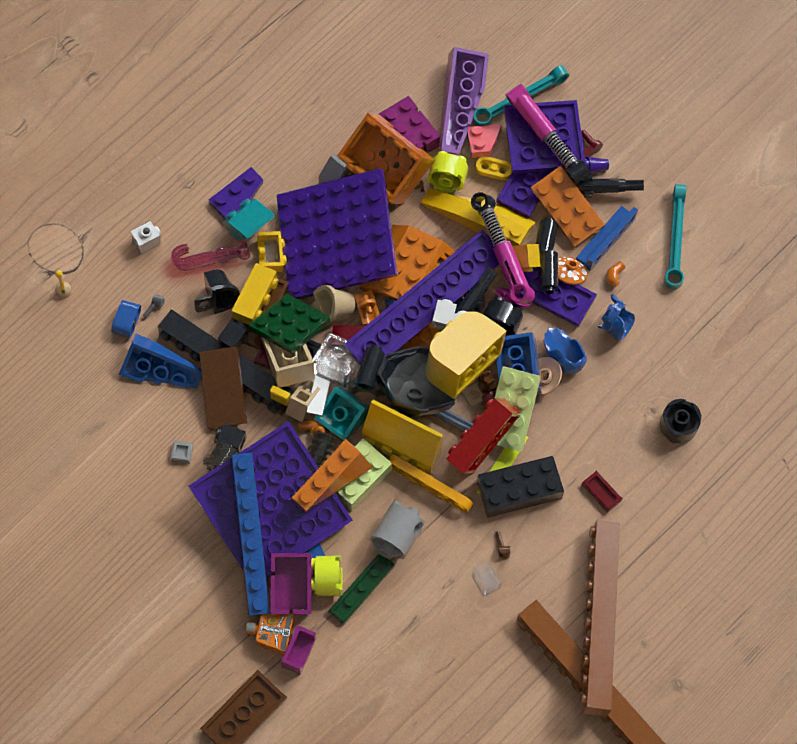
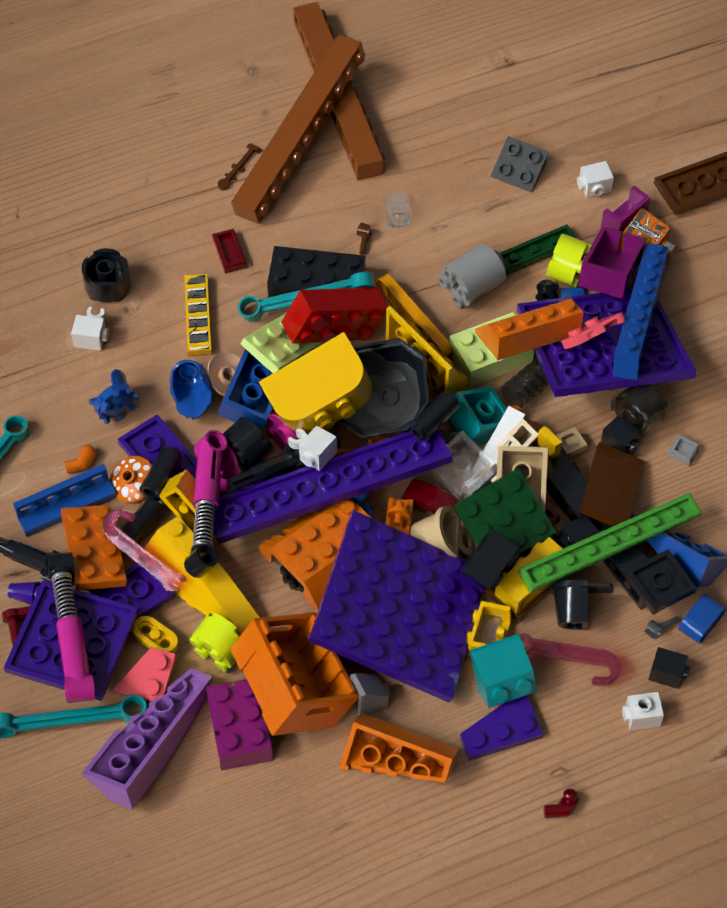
camera: 155 degrees left, 10 degrees down
(138, 273) = (669, 668): none -> black brick
(162, 318) = (660, 581): none -> black plate
(177, 159) = (564, 807): none -> dark red arm
(206, 332) = (609, 542): none -> bright green tile
(267, 420) = (572, 442): none -> tan plate
(280, 489) = (592, 328): none -> coral wing
(286, 277) = (489, 560): none -> black brick
(295, 150) = (396, 751): none -> orange wedge
(335, 548) = (547, 290): none -> black plate
(336, 675) = (595, 179): none -> white brick
(406, 668) = (519, 164): none -> dark grey hinge
(478, 472) = (357, 280): none -> teal piece
(552, 212) = (137, 552): none -> clear pink piece
(596, 424) = (197, 315): none -> tile
(639, 555) = (223, 184): none -> reddish brown piece
(667, 374) = (90, 330): none -> white brick

